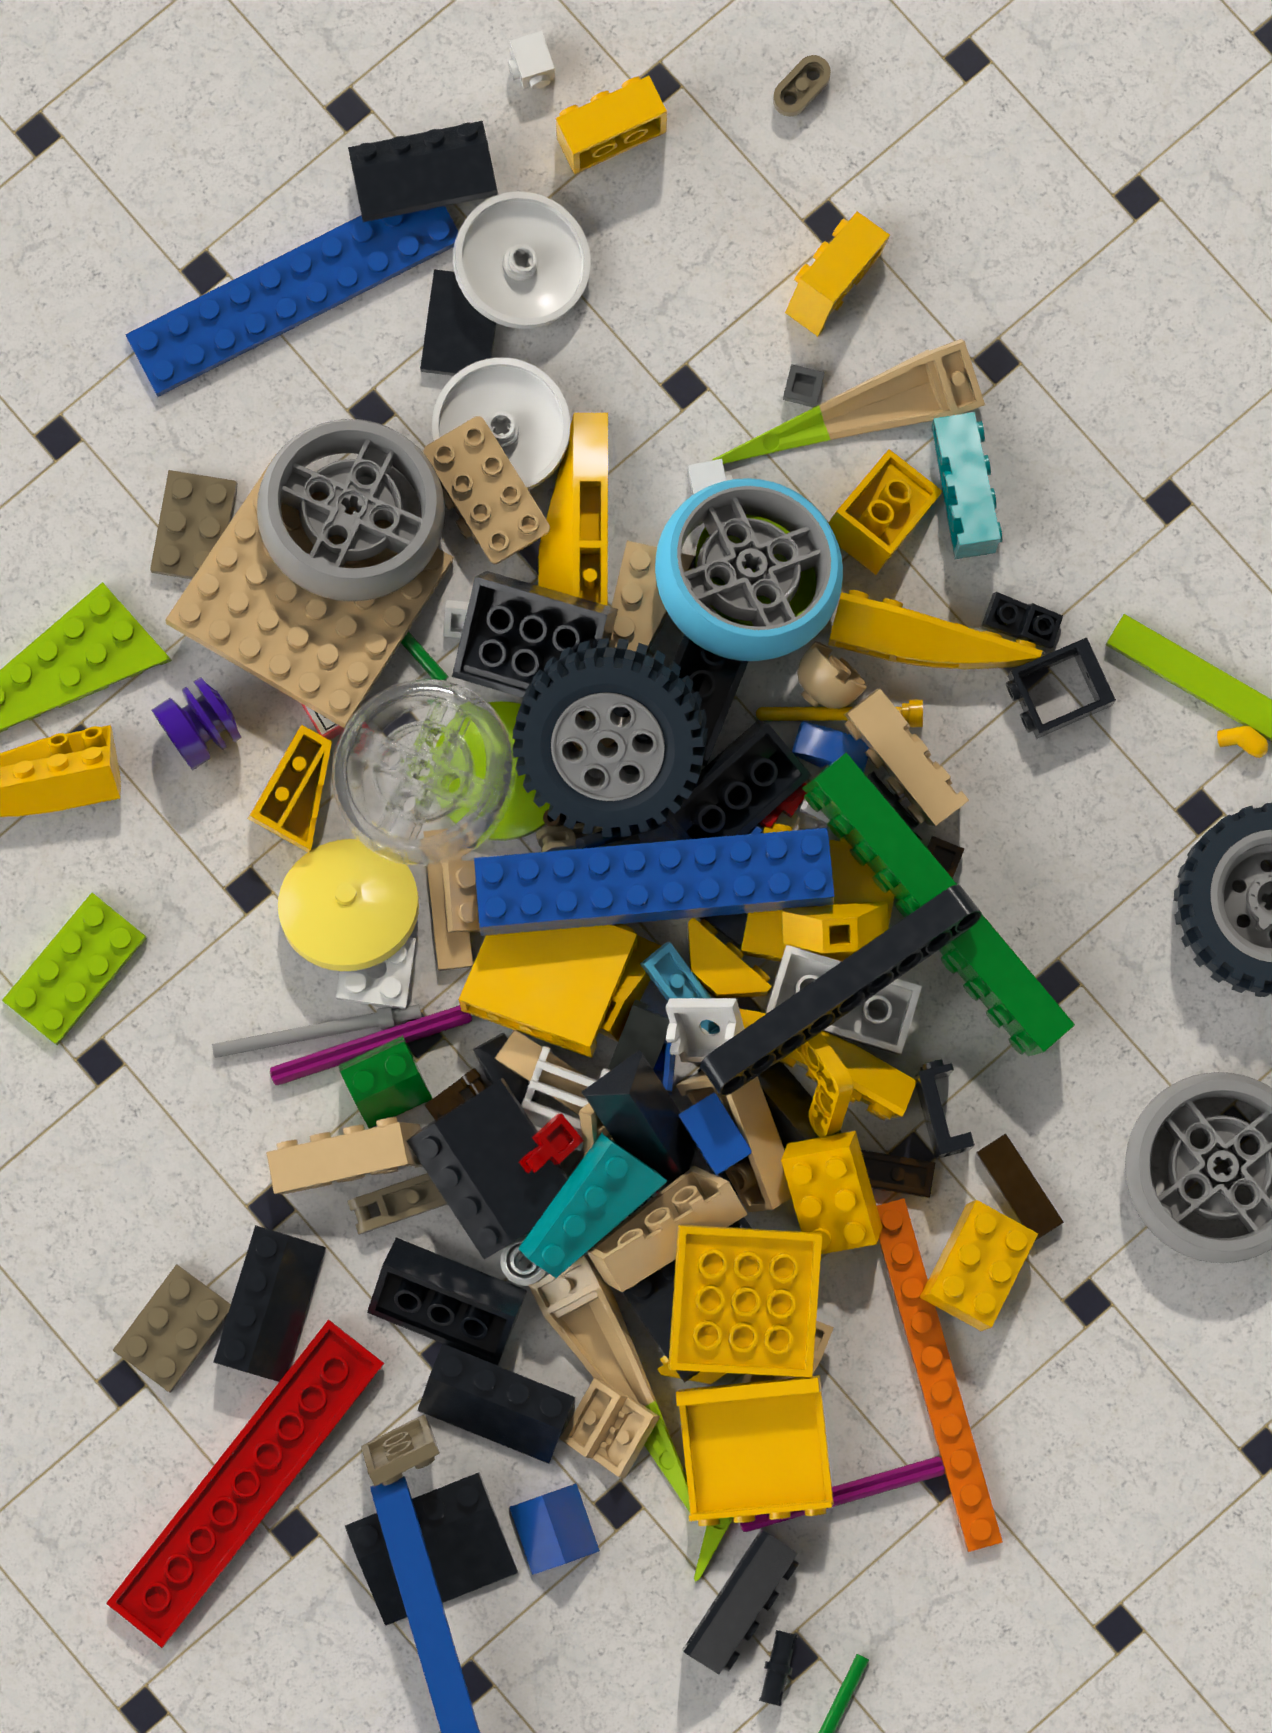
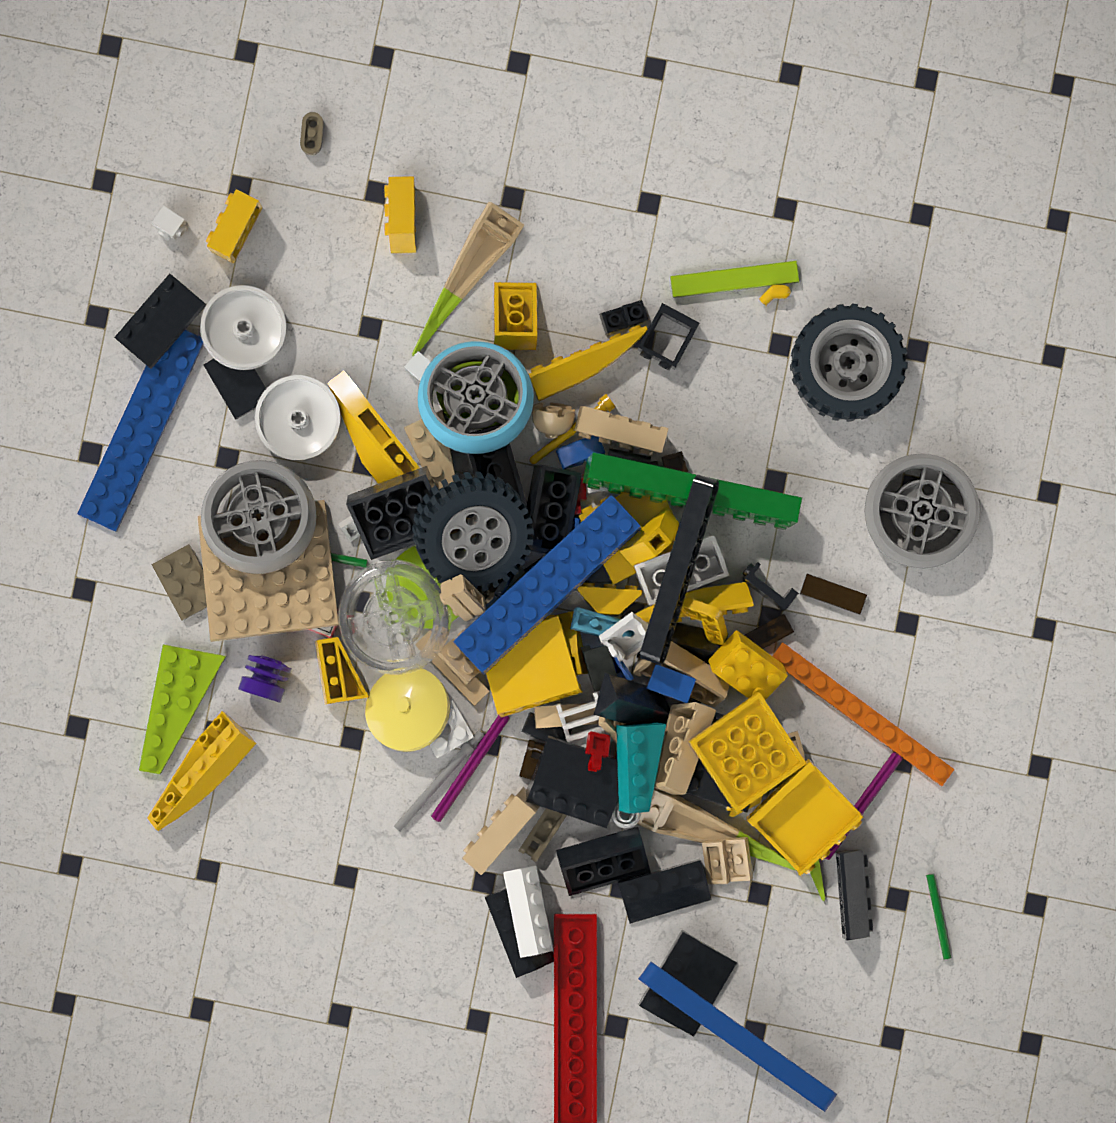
camera: 40 degrees left, 5 degrees up
(74, 968) = (298, 842): lime plate -> none
(173, 1328) = (482, 975): dark tan plate -> none
(298, 1287) = (528, 911): none -> white slope
(385, 1081) = (491, 780): green slope -> none
(400, 1450) = (638, 950): dark tan plate -> none
(485, 491) = (315, 455): tan bracket -> none
(530, 811) = (462, 598): none -> tan brick
(554, 1529) = (738, 928): blue slope -> none
(778, 1668) = (894, 911): black pin -> none
(803, 386) = (428, 283): dark grey plate -> none
(966, 485) = (547, 273): wedge -> none
(978, 1265) = (843, 647): yellow brick -> none

